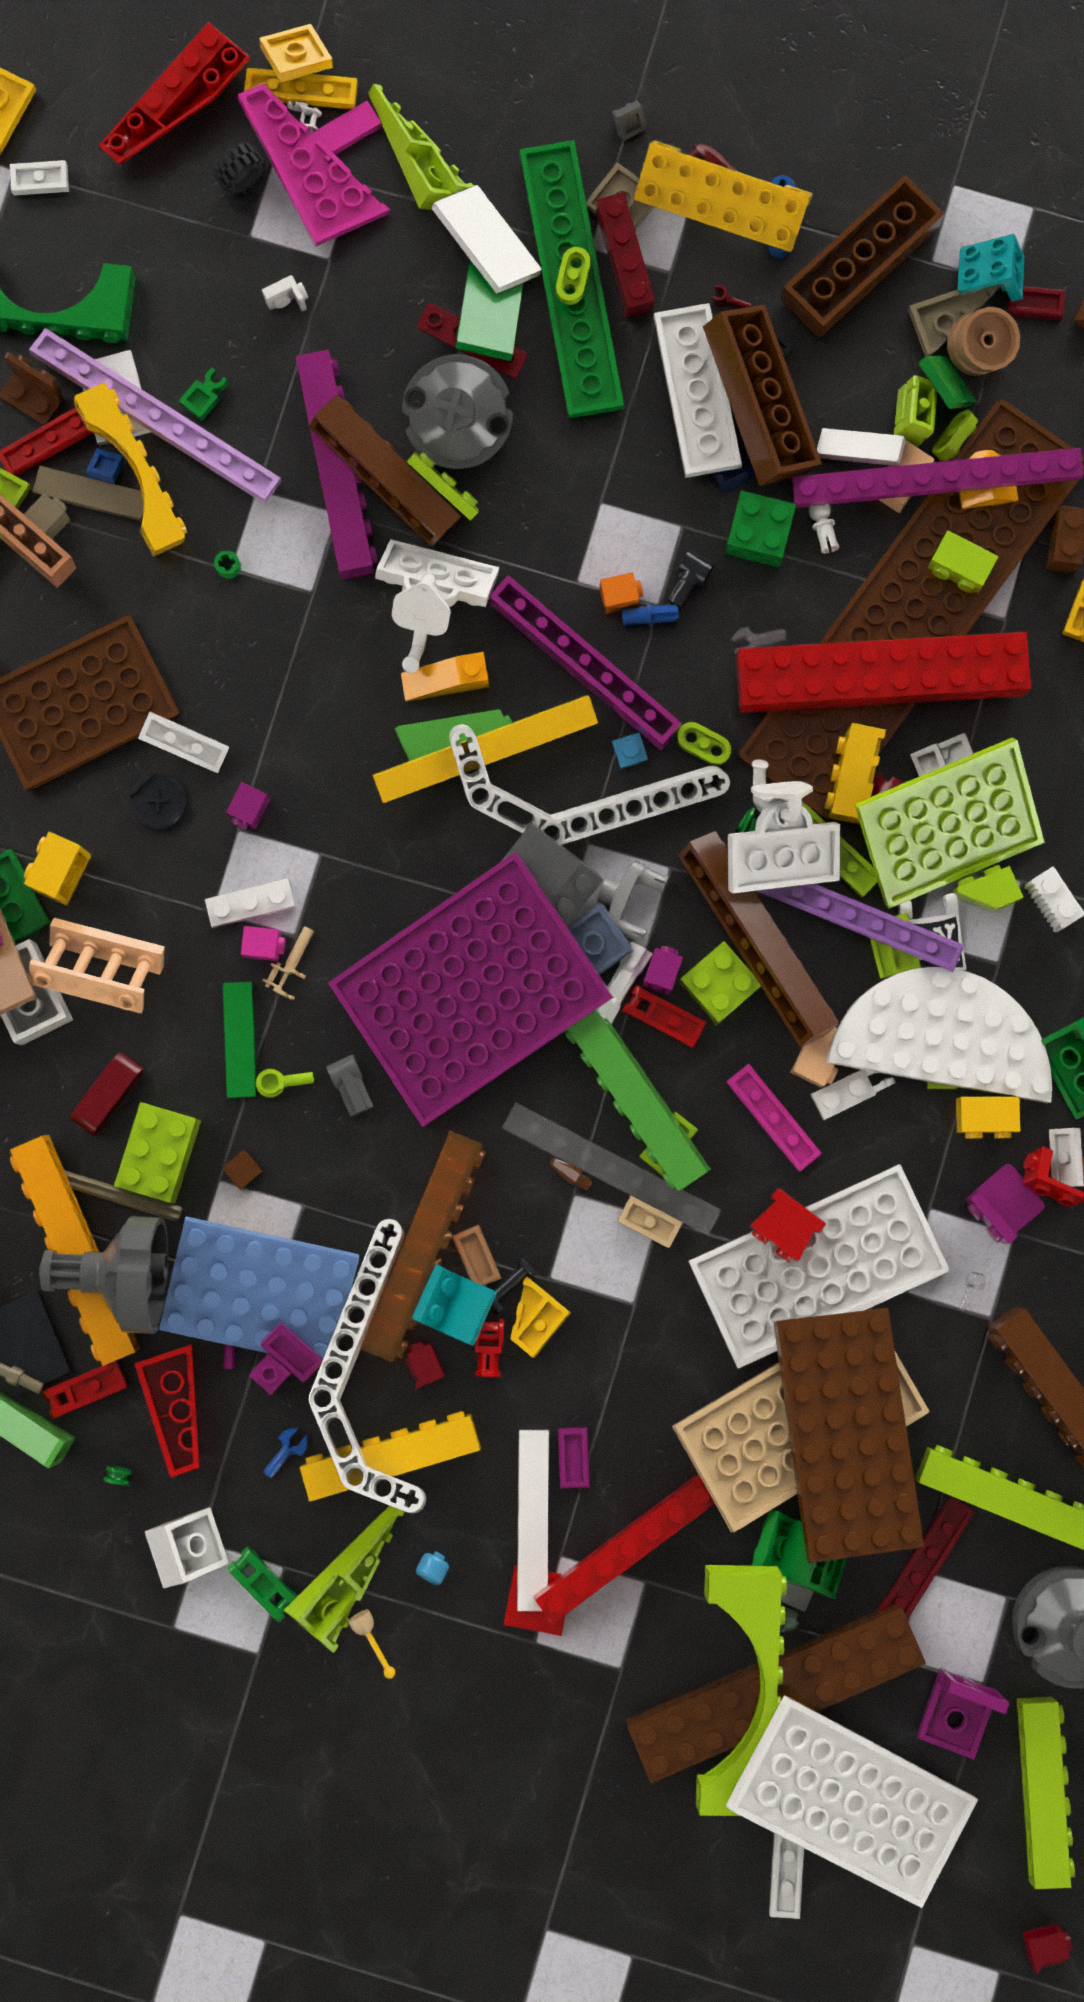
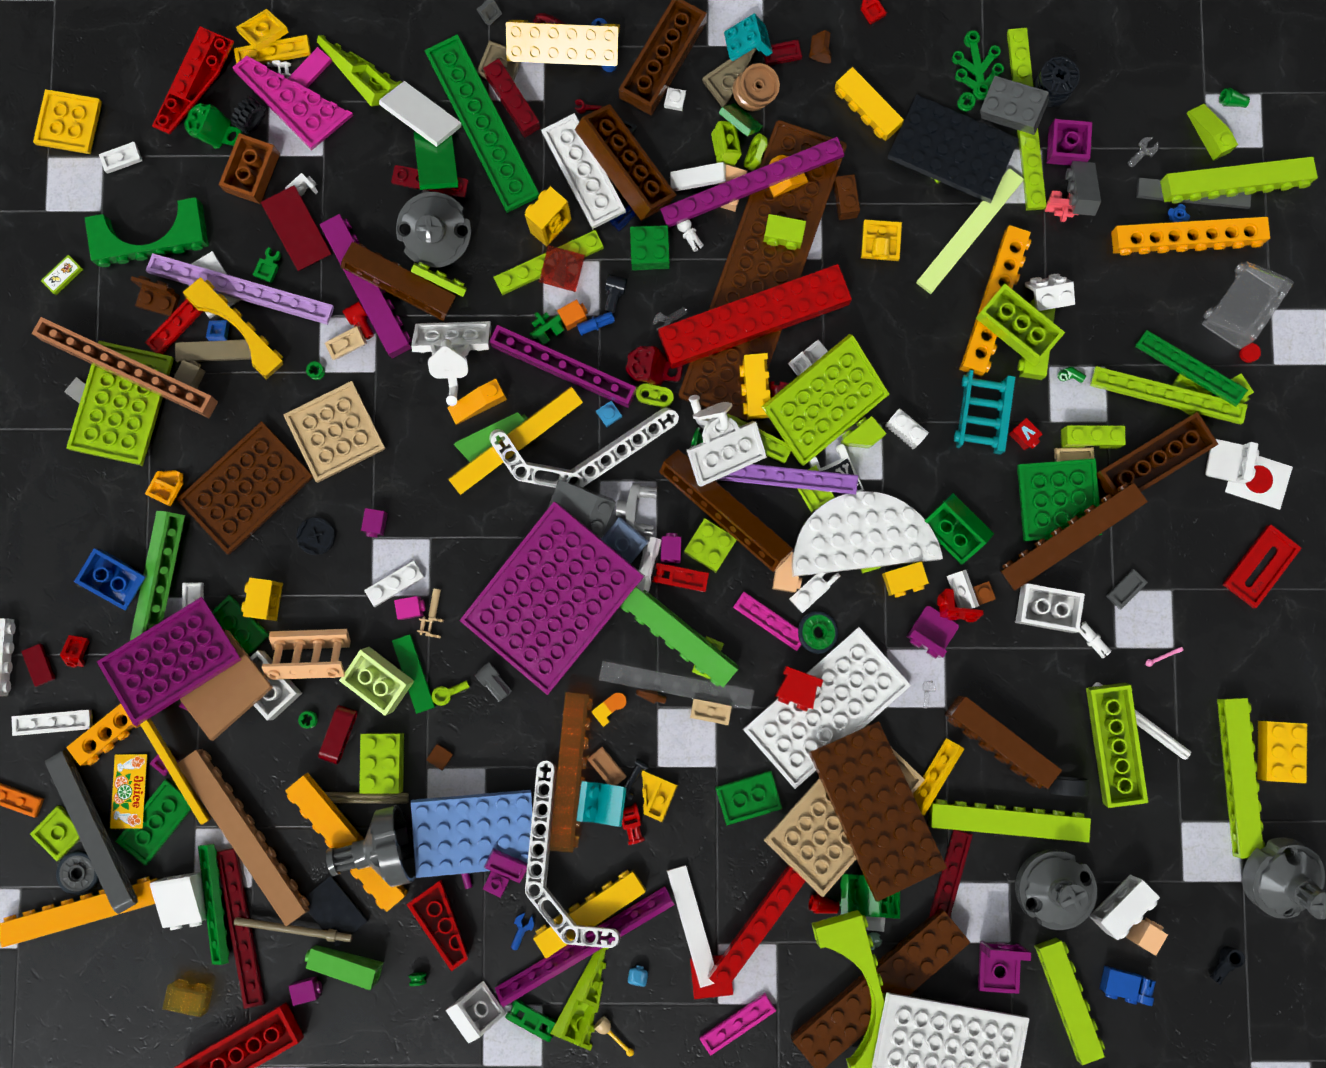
camera: 15 degrees left, 0 degrees up
(76, 1066) = (313, 722): none -> green bush
(86, 1388) = (380, 929): red plate -> none
(181, 170) = (210, 126): none -> green piece
(183, 742) = (320, 493): white plate -> none
(185, 1033) = (376, 680): none -> yellowish green brick
(219, 247) = (249, 168): none -> dark orange brick
(229, 660) = (334, 431): none -> tan plate
(260, 352) = (296, 228): none -> dark red tile
(282, 538) = (345, 343): none -> tan plate
(310, 505) = (357, 316): none -> red pin
(352, 1506) = (572, 954): none -> magenta plate
(424, 1363) = (593, 847): dark red window -> none
(515, 1166) = (614, 702): none -> leg
(555, 1679) = (737, 1024): none -> dark pink tile
(564, 605) = (553, 323): none -> green hips
(573, 277) = (482, 122): lime plate -> none
(573, 1457) = (707, 878): magenta tile -> none
(608, 507) = (532, 269): none -> lime plate
(624, 521) = (561, 268): none -> clear red tile
(627, 440) = (548, 216): none -> yellow brick
(668, 1361) = (748, 798): none -> green tile
(710, 699) = (650, 366): none -> dark red piece
(728, 1546) = (823, 905): none -> red cone
(821, 1154) = (806, 632): none -> green wheel
(860, 324) = (674, 99): none -> white plate
(950, 1409) = (937, 774): none -> yellow plate

